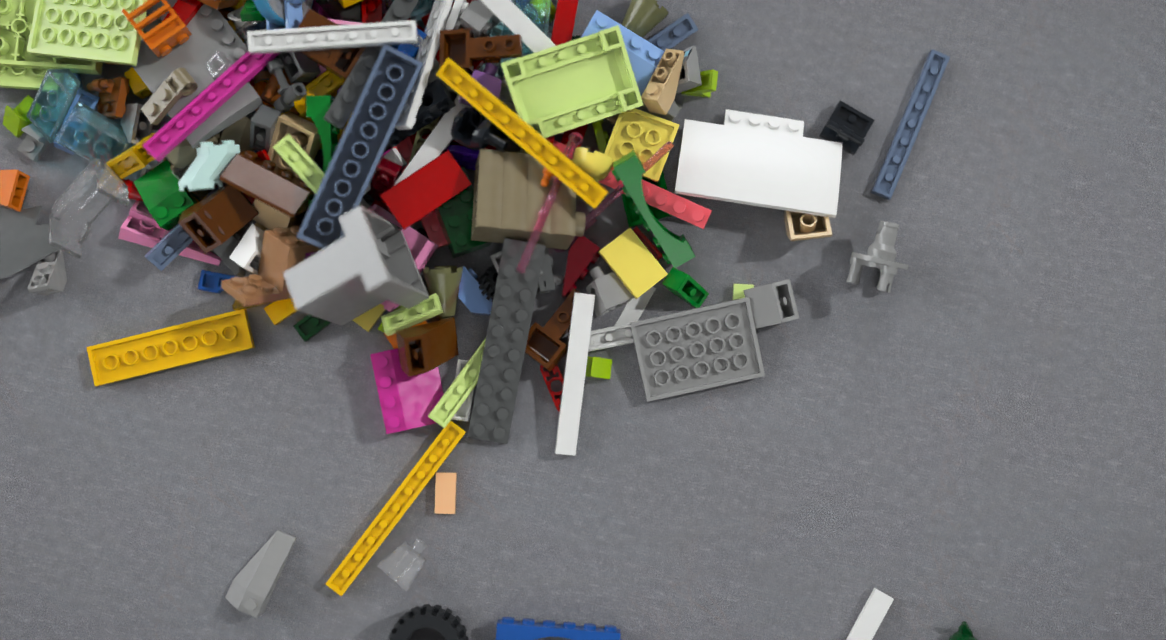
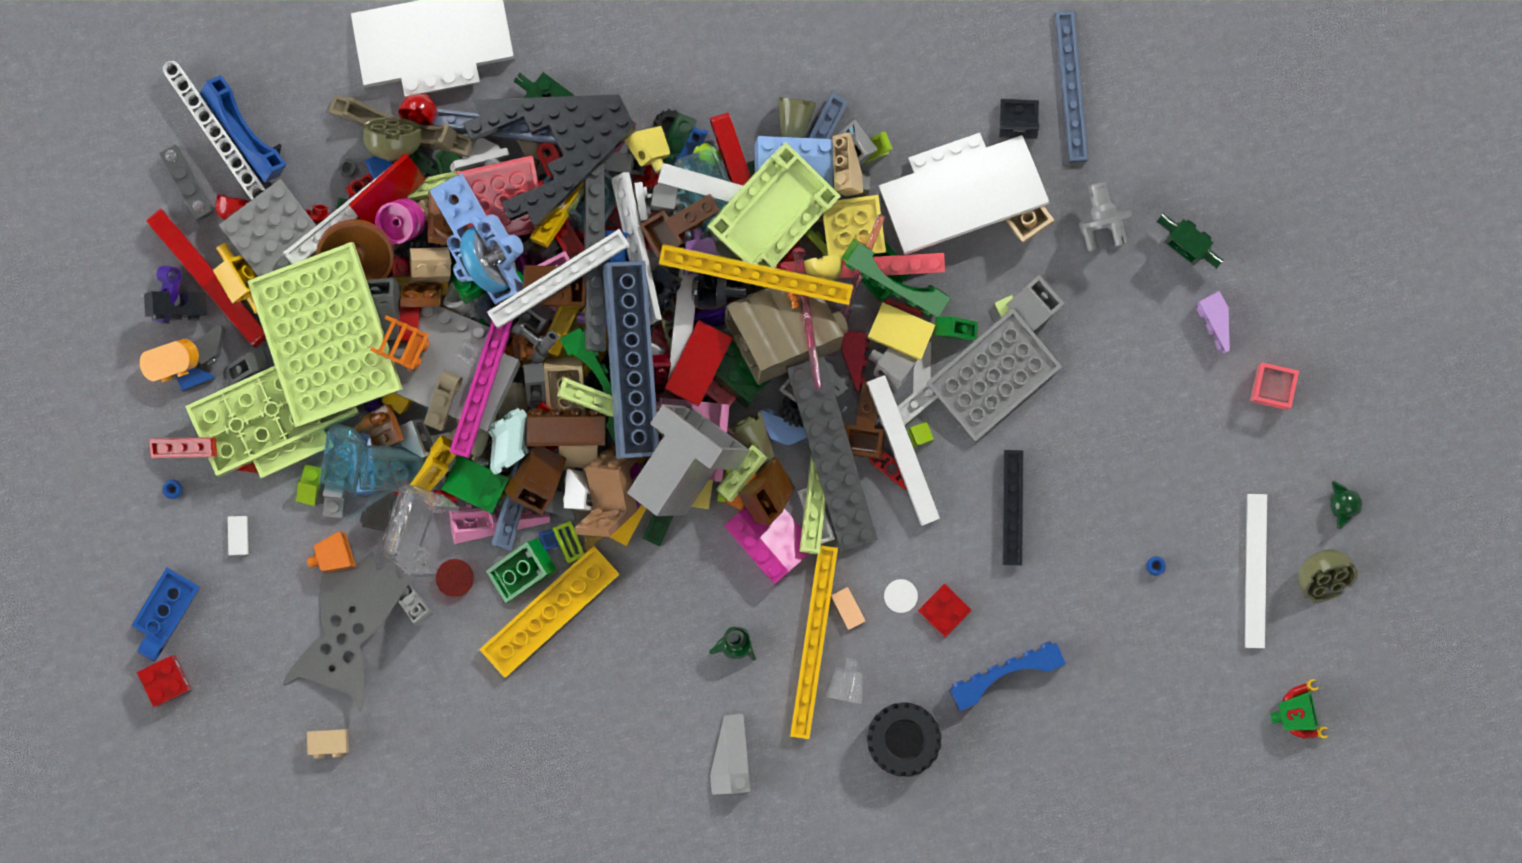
camera: 30 degrees left, 0 degrees up
(63, 173) = (378, 514): none -> clear smoke slope
(104, 269) = (454, 577): none -> clear red tile
(118, 70) = (373, 405): none -> dark purple plate
(167, 295) = (521, 570): none -> green slope
(222, 309) = (562, 526): none -> lime tile
(321, 470) = (735, 644): none -> dark green piece
(501, 507) = (900, 596): none -> white sticker
(533, 543) = (944, 610): none -> red plate
(648, 482) = (1012, 507): none -> black plate
(753, 615) = (1160, 570): none -> blue plate
(934, 408) = (1217, 318): none -> lavender slope
(947, 323) = (1189, 241): none -> dark green brick
(955, 501) = (1274, 386): none -> piece

